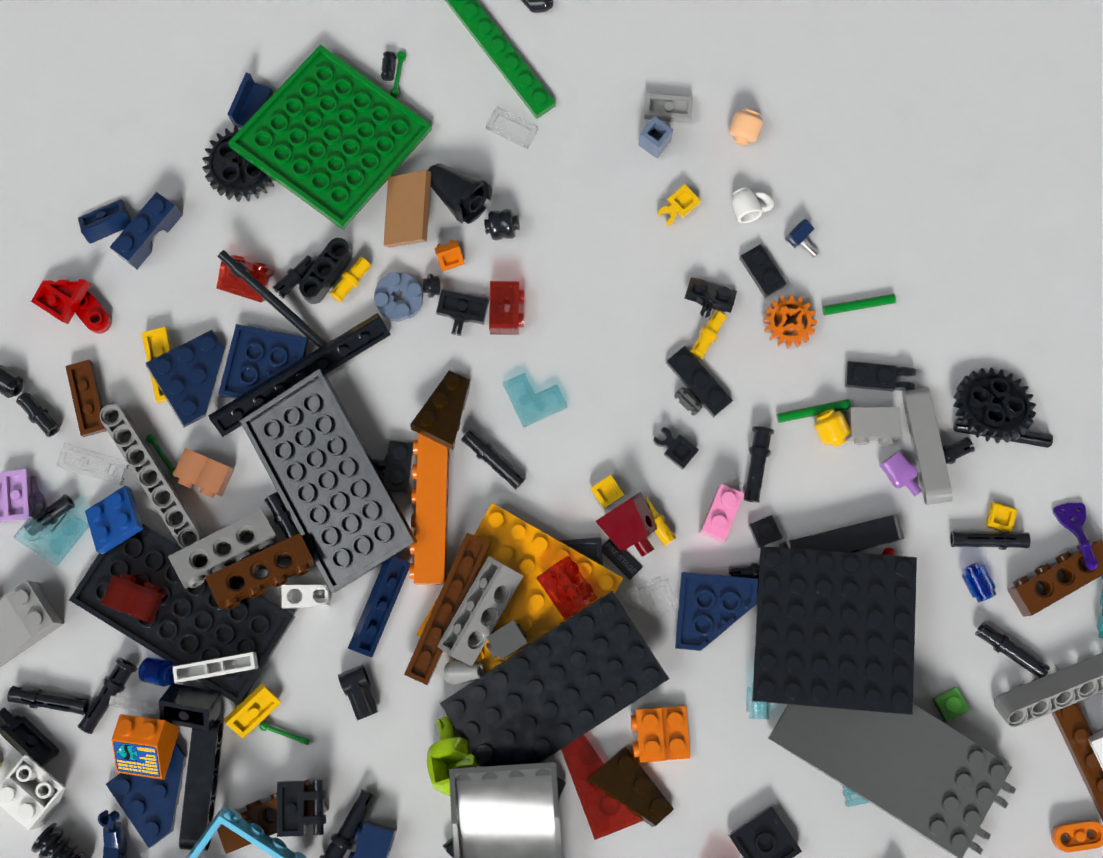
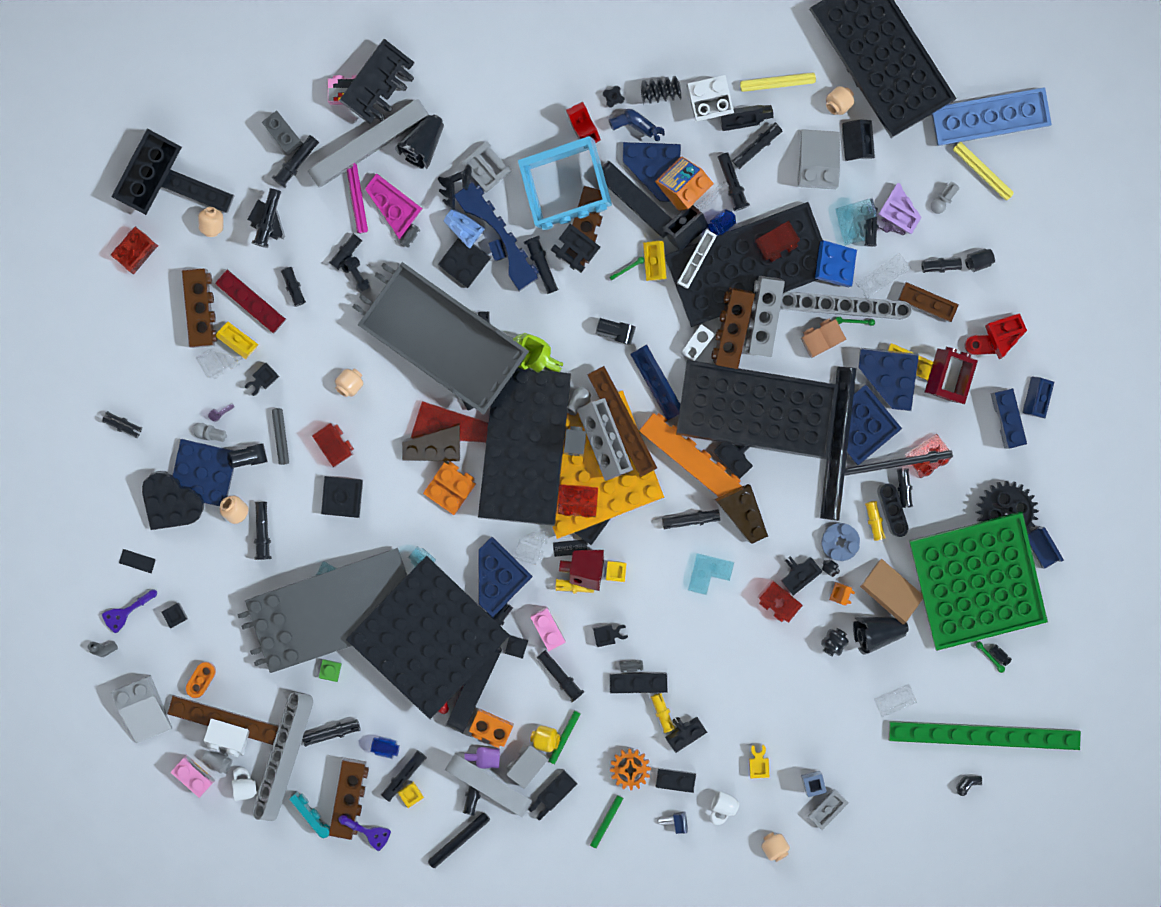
camera: 125 degrees right, 10 degrees up
(148, 329) = (938, 374): none -> dark red window
(281, 515) = (758, 365): black pin -> none
(860, 491) = (493, 723): none -> orange brick
(994, 405) = (479, 848): black gear -> none

